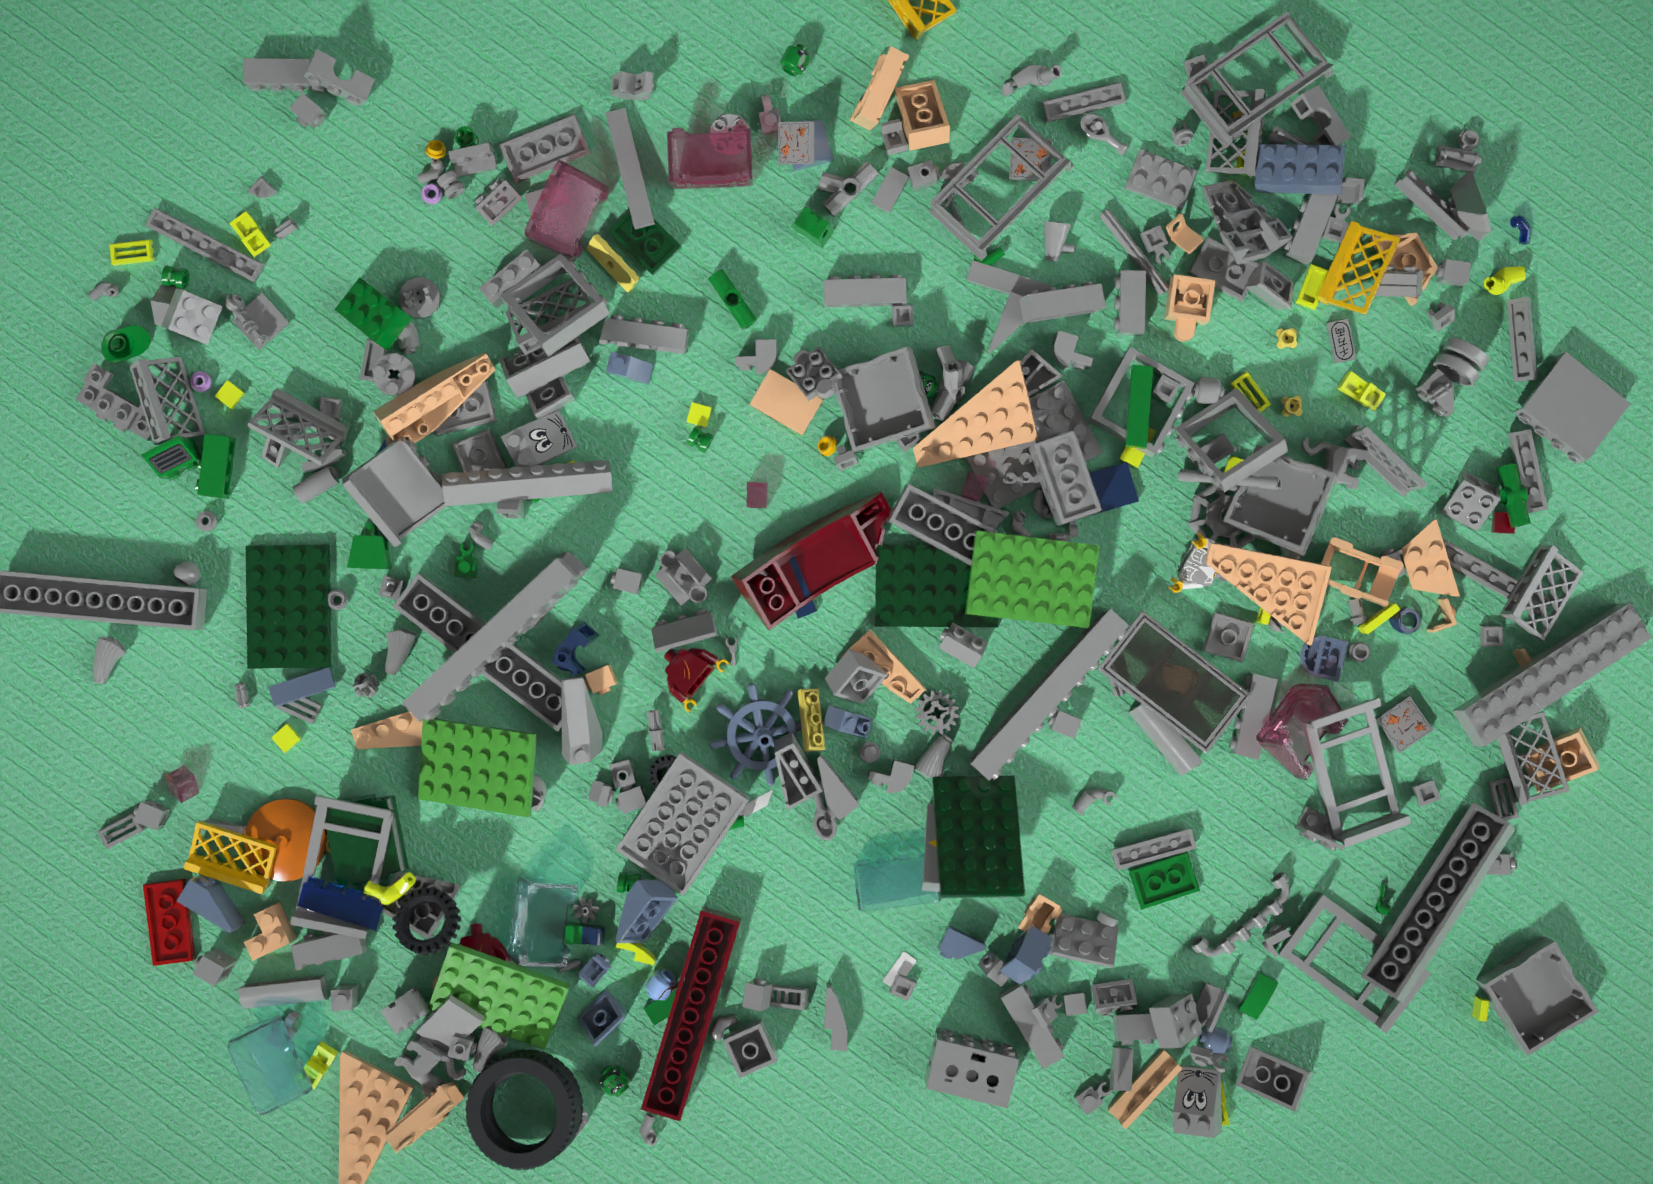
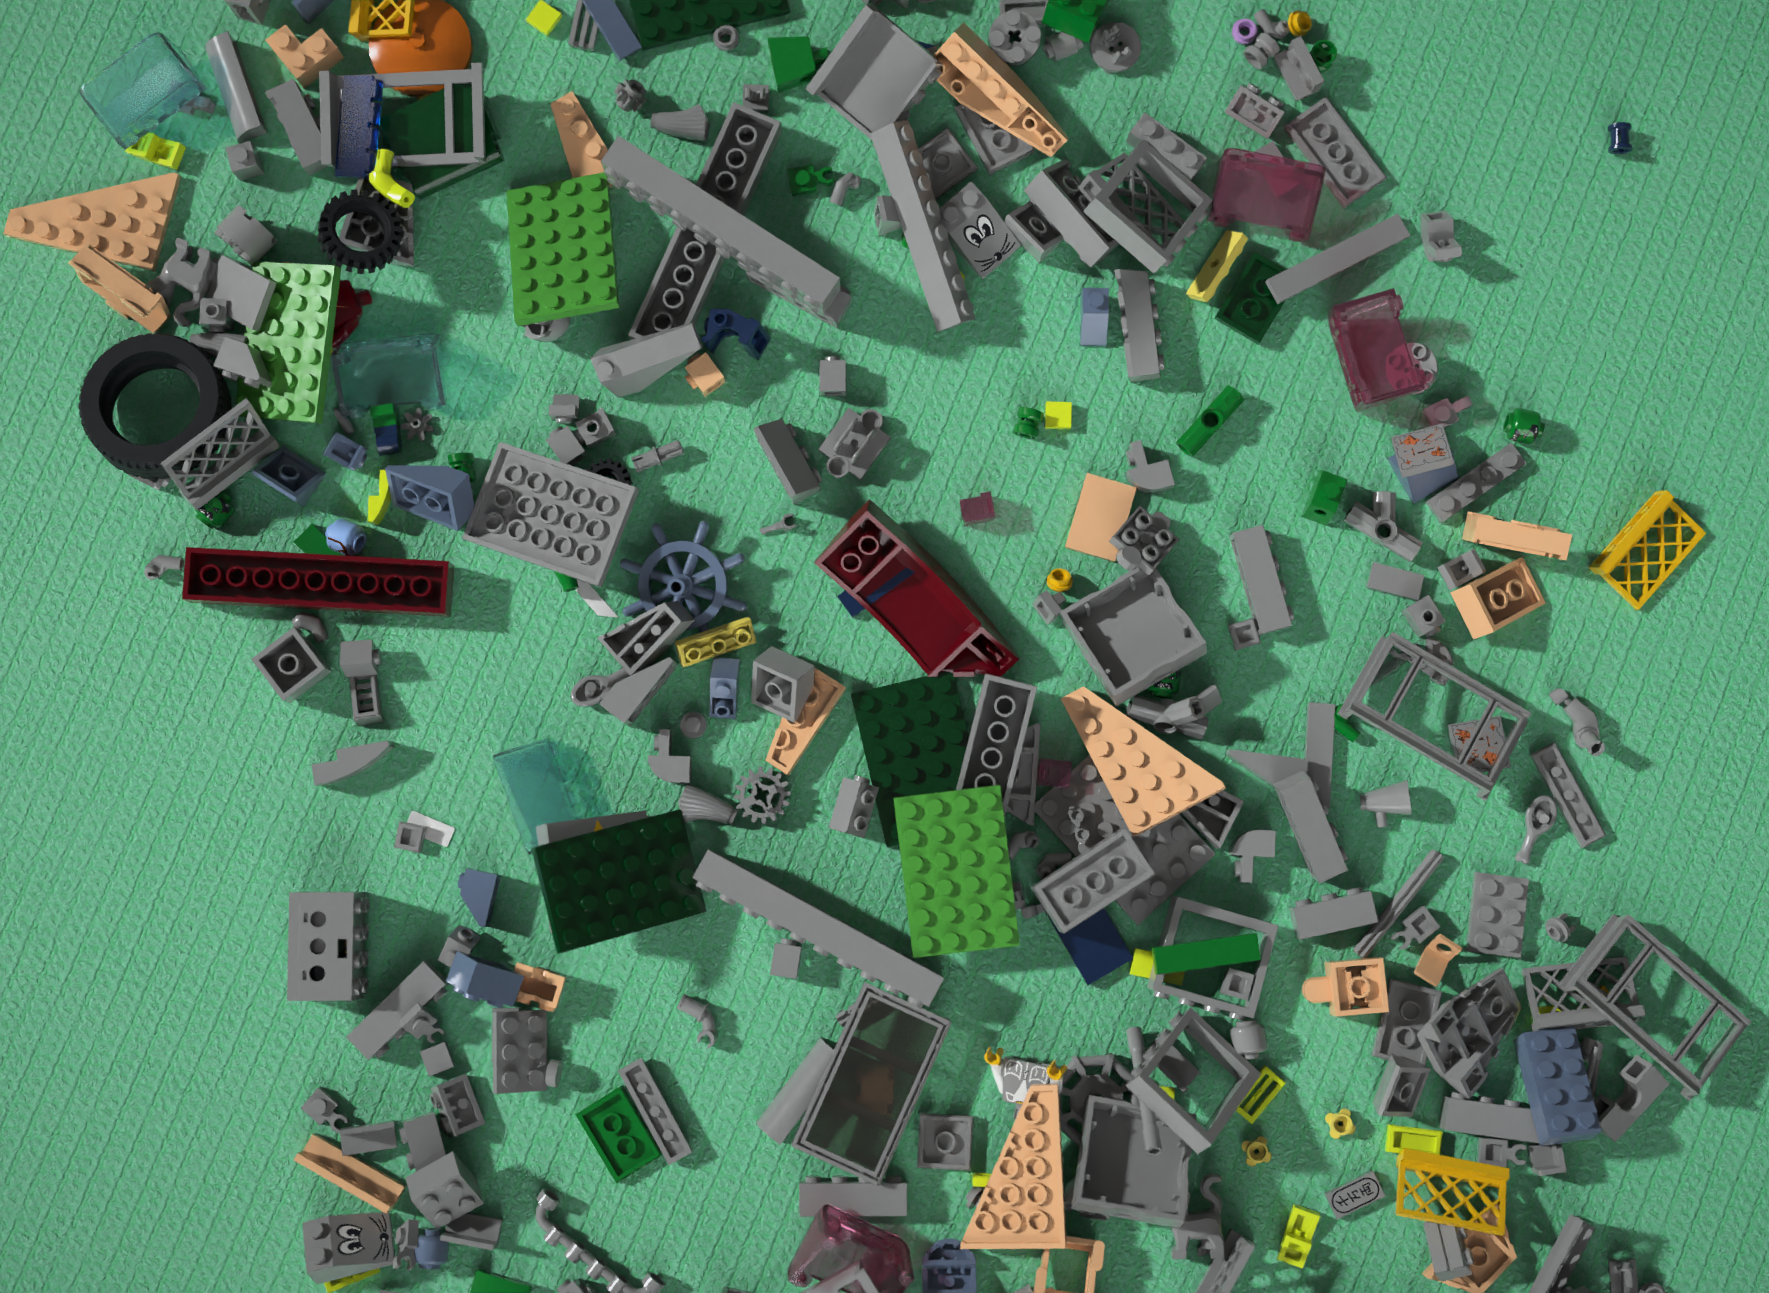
camera: 75 degrees right, 5 degrees down
(506, 1033) = (242, 361): none -> light grey slope
(583, 1062) = (228, 466): none -> light grey fence
(688, 672) = (739, 477): dark red torso -> none
(829, 108) = (1475, 482): none -> light grey plate
(908, 442) = (1090, 680): light grey tile -> none
(1194, 66) = (1651, 922): light grey plate -> none

